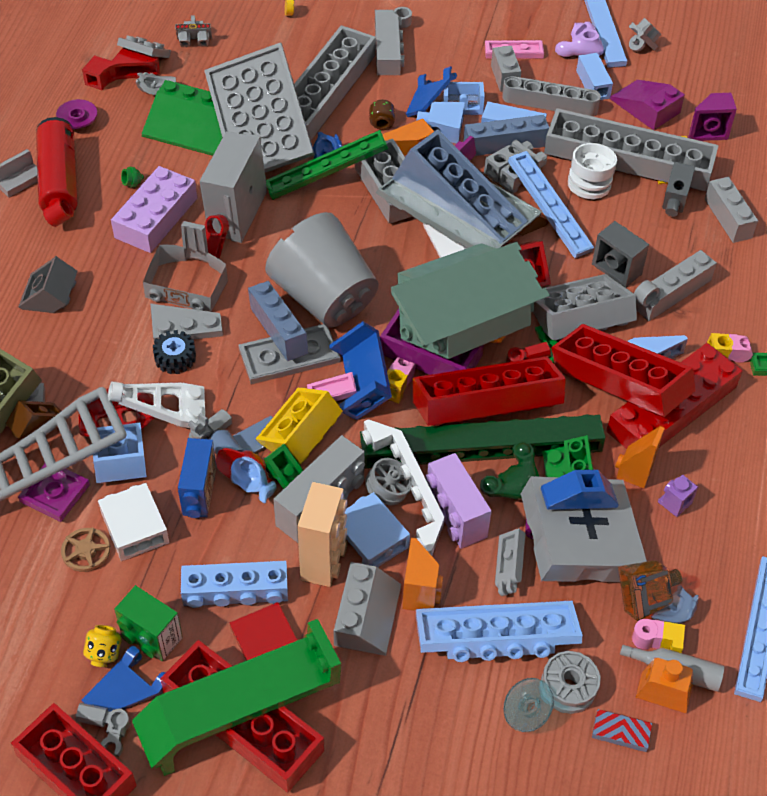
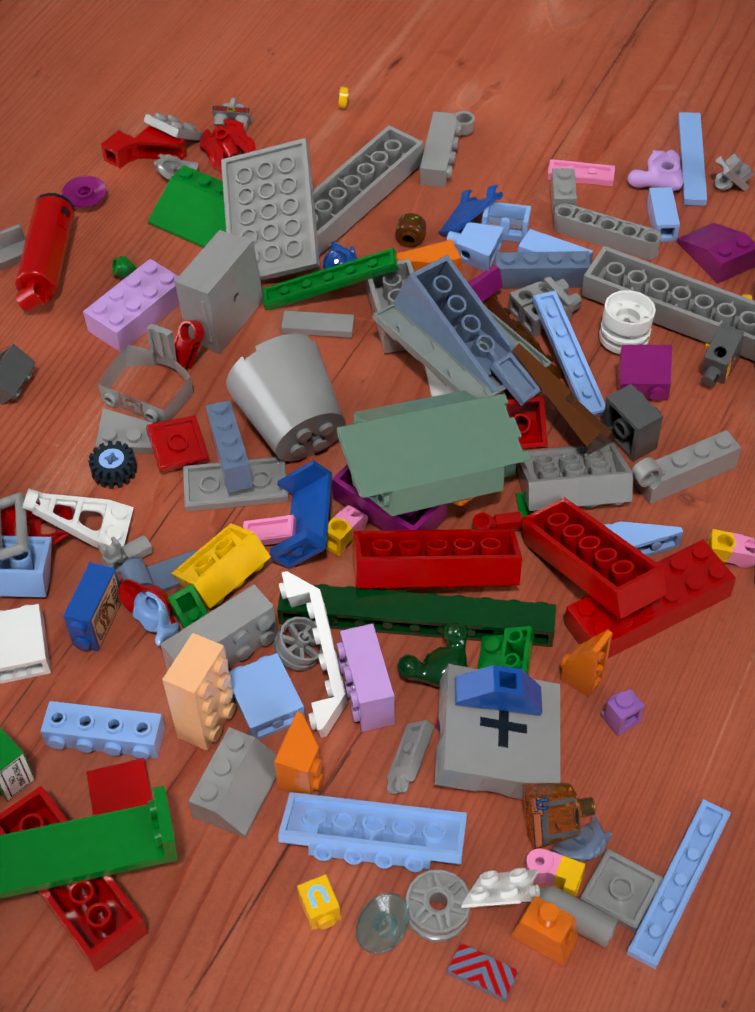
camera: 15 degrees right, 0 degrees up
(195, 55) = (226, 142): none -> red piece
(228, 325) = (177, 443): none -> red tile
(311, 205) = (318, 324): none -> light grey tile
(468, 698) = (319, 903): none -> yellow brick
(517, 228) = (515, 378): none -> sand blue tile
(581, 260) = (583, 423): none -> reddish brown wedge
(619, 205) = (646, 369): none -> magenta slope
(624, 656) = (503, 888): none -> white hinge
(717, 640) = (622, 889): none -> light grey tile

